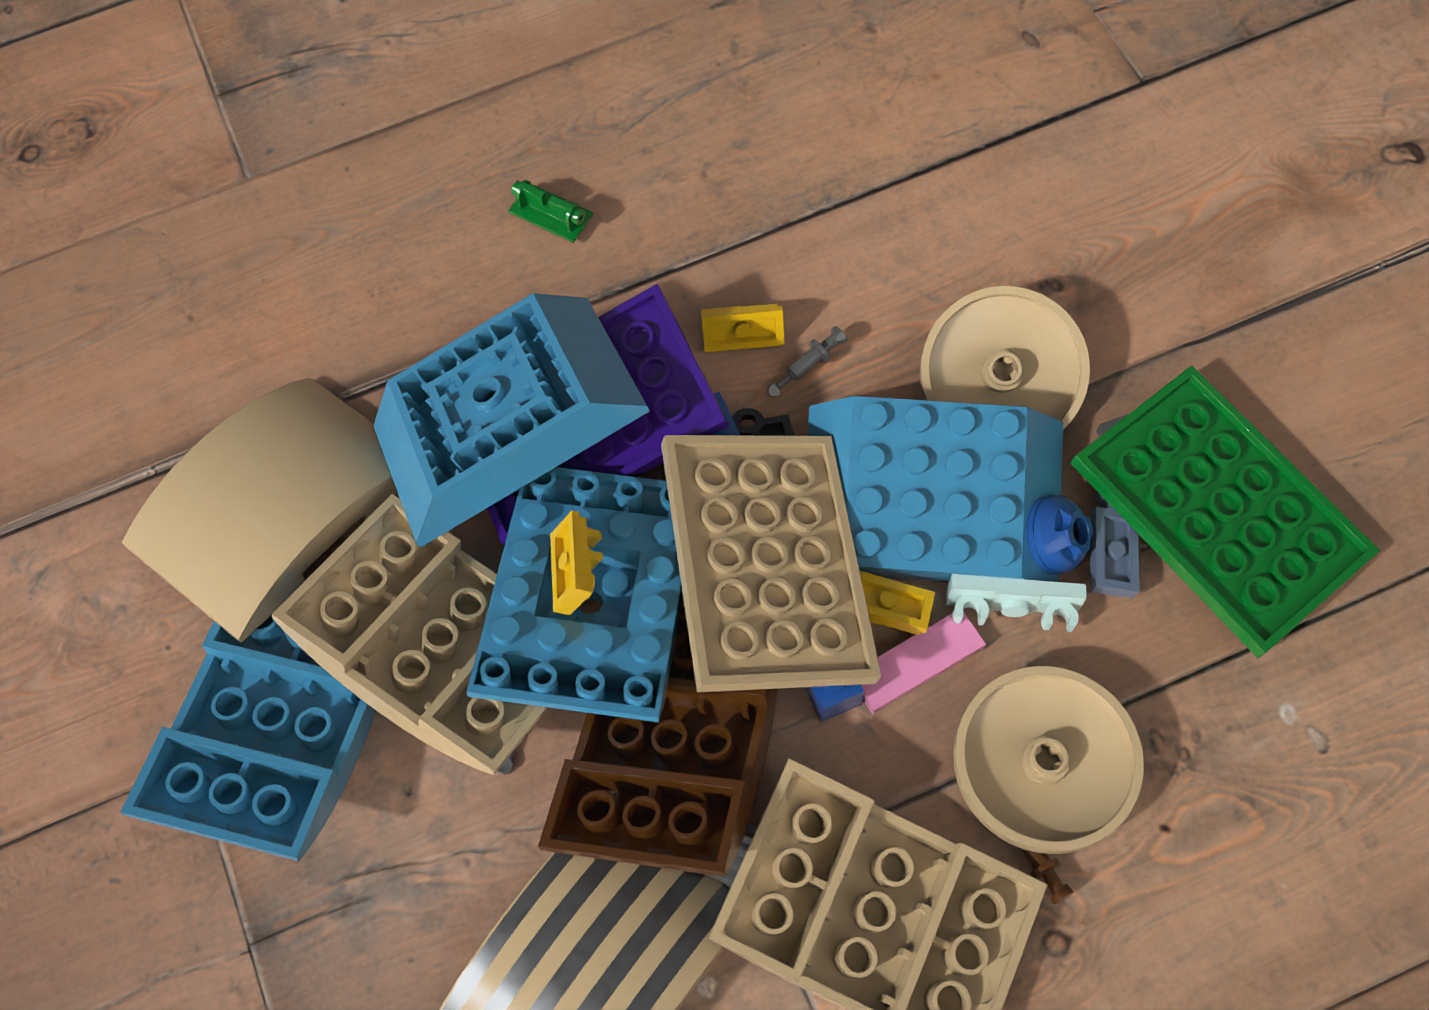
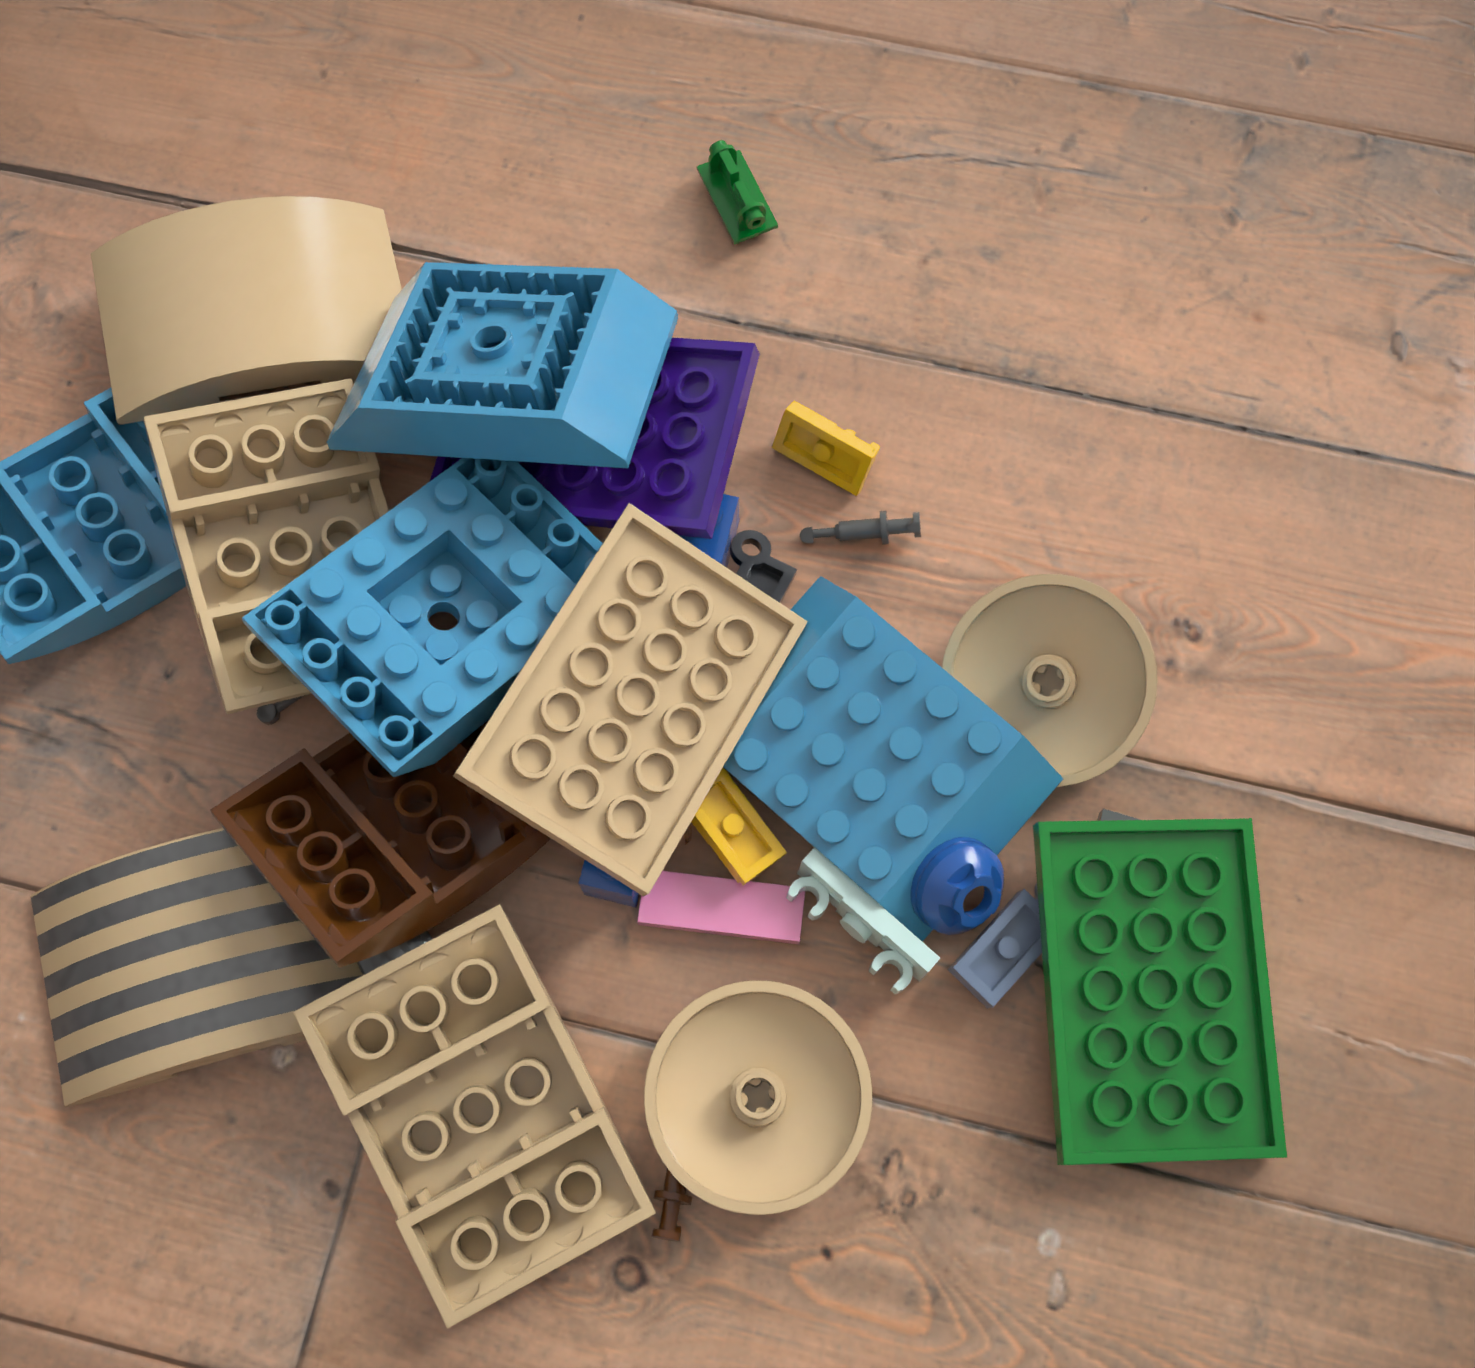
camera: 35 degrees right, 5 degrees up
(573, 562) = (442, 558): yellow plate -> none

